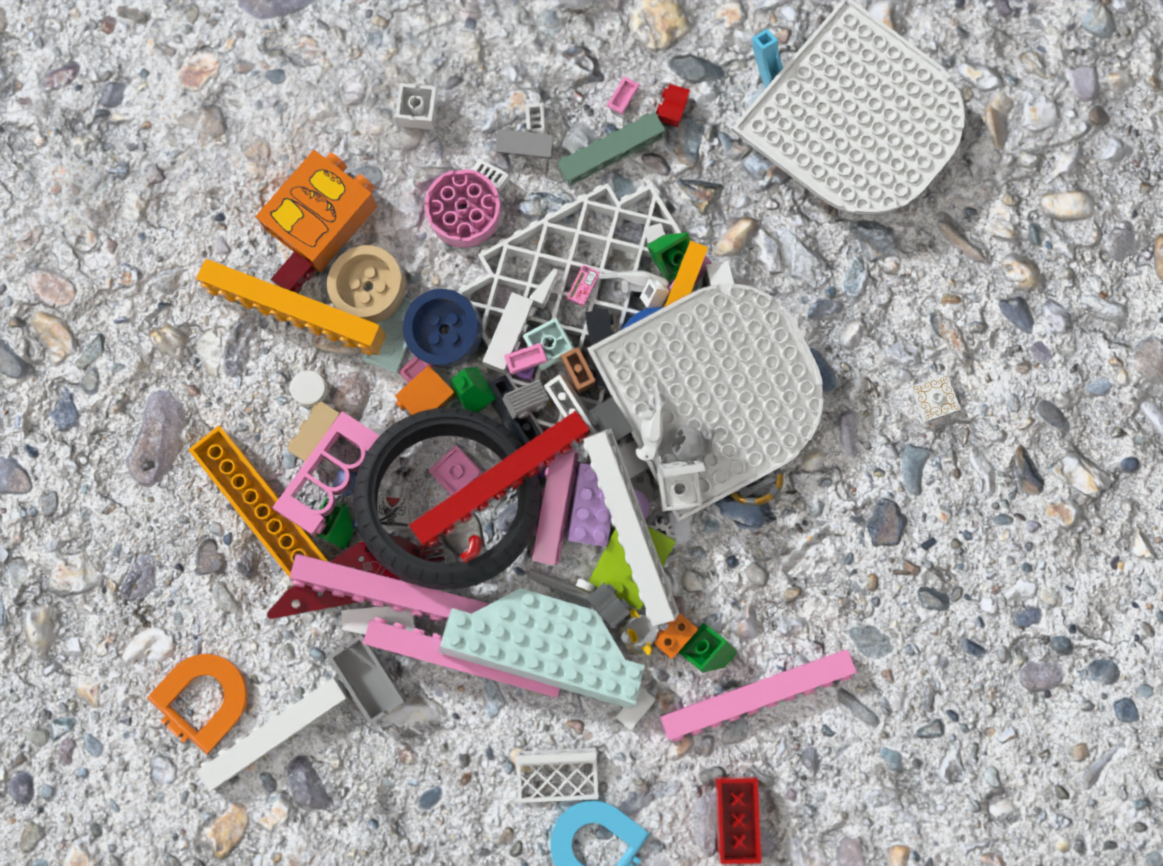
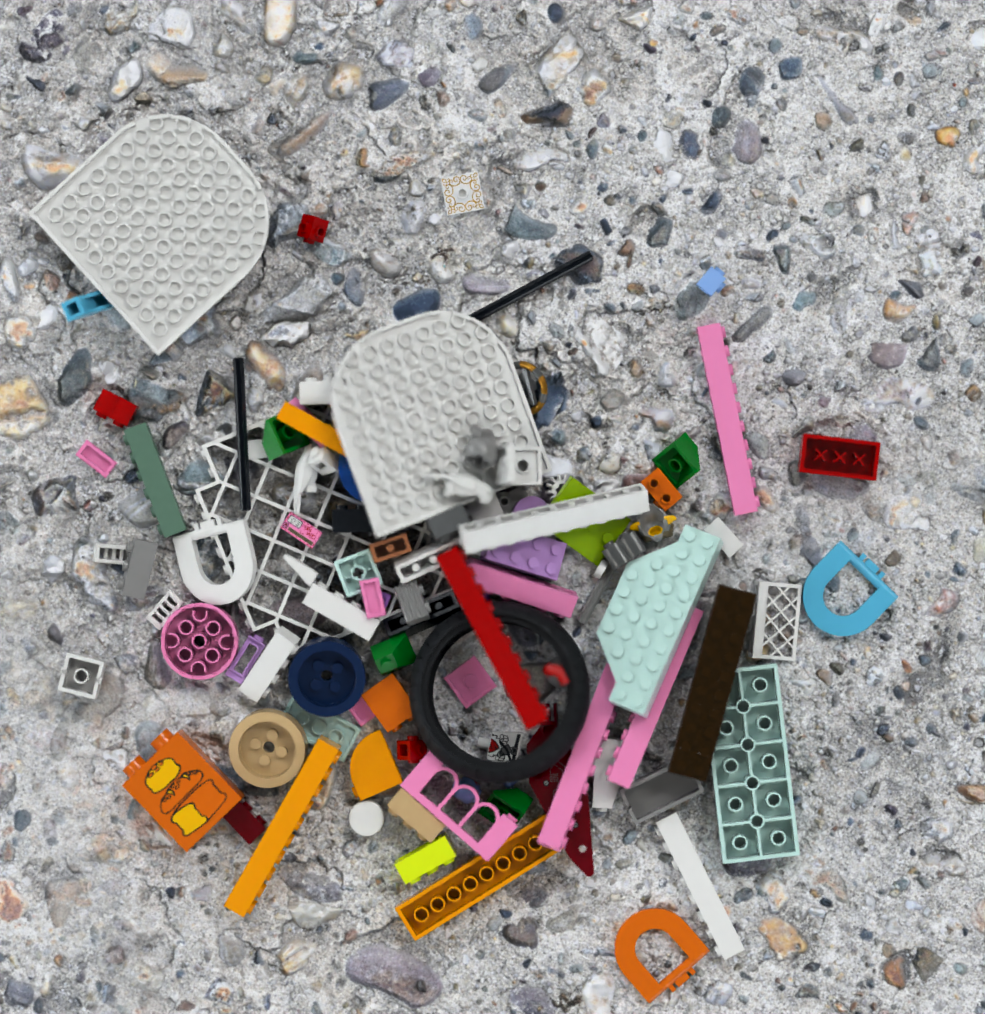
camera: 80 degrees left, 10 degrees up
(271, 449) = (426, 859): none -> neon yellow piece
(360, 387) = (373, 766): none -> light orange brick
(380, 419) = (411, 749): none -> red brick
(404, 769) = (754, 771): none -> light aqua brick
(448, 273) = (269, 664): none -> white brick
(451, 254) = (246, 658): none -> lavender window
(483, 716) = (712, 682): none -> dark brown brick
(550, 233) = (243, 554): none -> white piece
(668, 217) = (241, 431): none -> black axle
(858, 480) = (532, 286): none -> black axle
(875, 259) = (312, 229): none -> red brick
(896, 658) = (712, 281): none -> light blue brick

